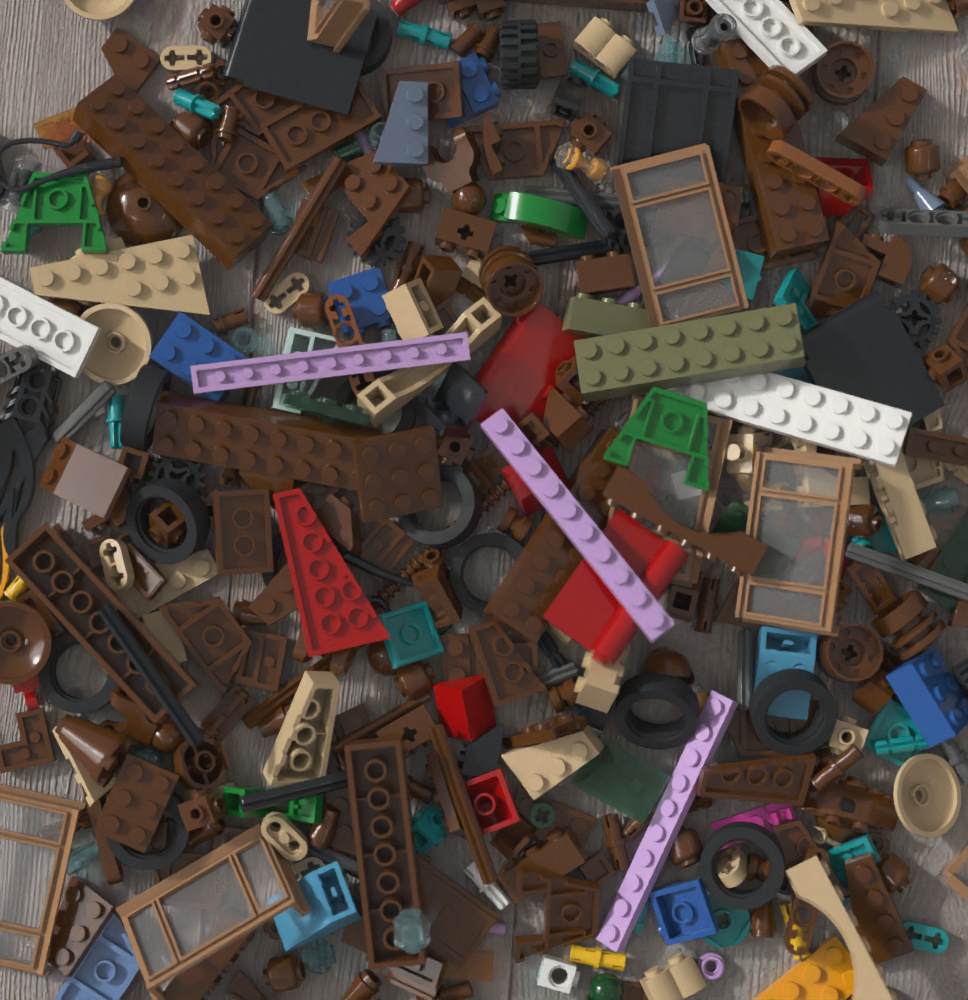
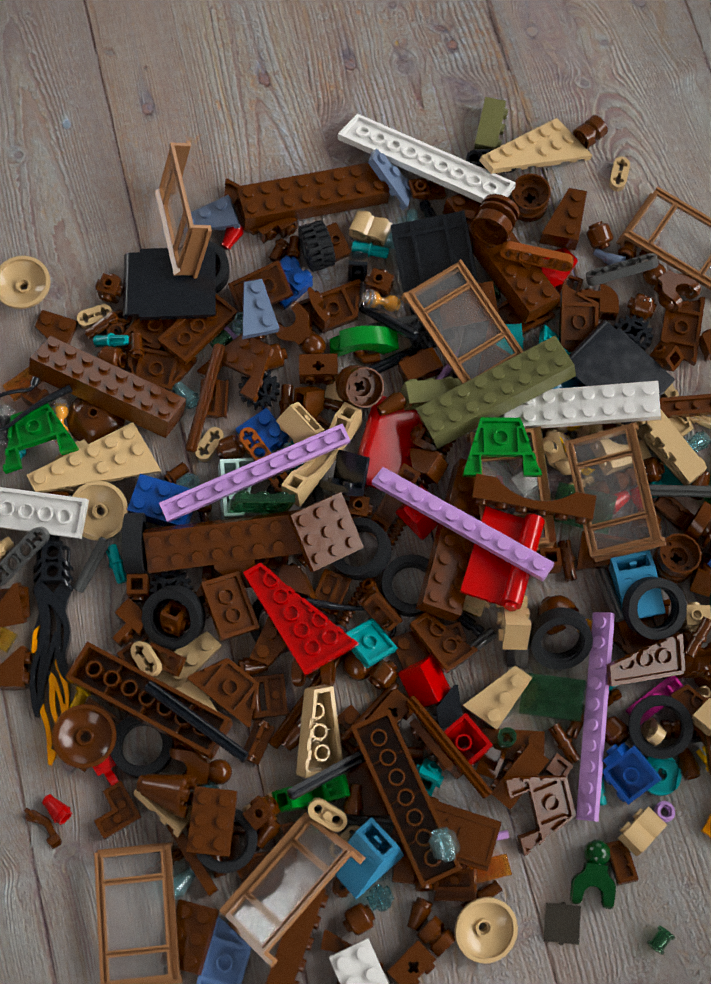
camera: 20 degrees left, 15 degrees down
(85, 477) = (106, 604): slope -> none
(201, 765) = (249, 780): reddish brown cylinder -> none
(424, 34) = (249, 256): teal pin -> none
(492, 891) = (484, 805): white axle -> none
(515, 524) = (416, 546): reddish brown wheel -> none
(546, 320) = (392, 404): none -> reddish brown cone
(546, 731) = (487, 677): reddish brown wing -> none
(549, 964) = (548, 853): white brick -> none
(563, 696) = (491, 652): reddish brown wheel -> none
(597, 957) = (581, 832): yellow pin -> none
(673, 878) = (615, 753): none -> blue plate
(720, 29) = (440, 193): clear piece -> none

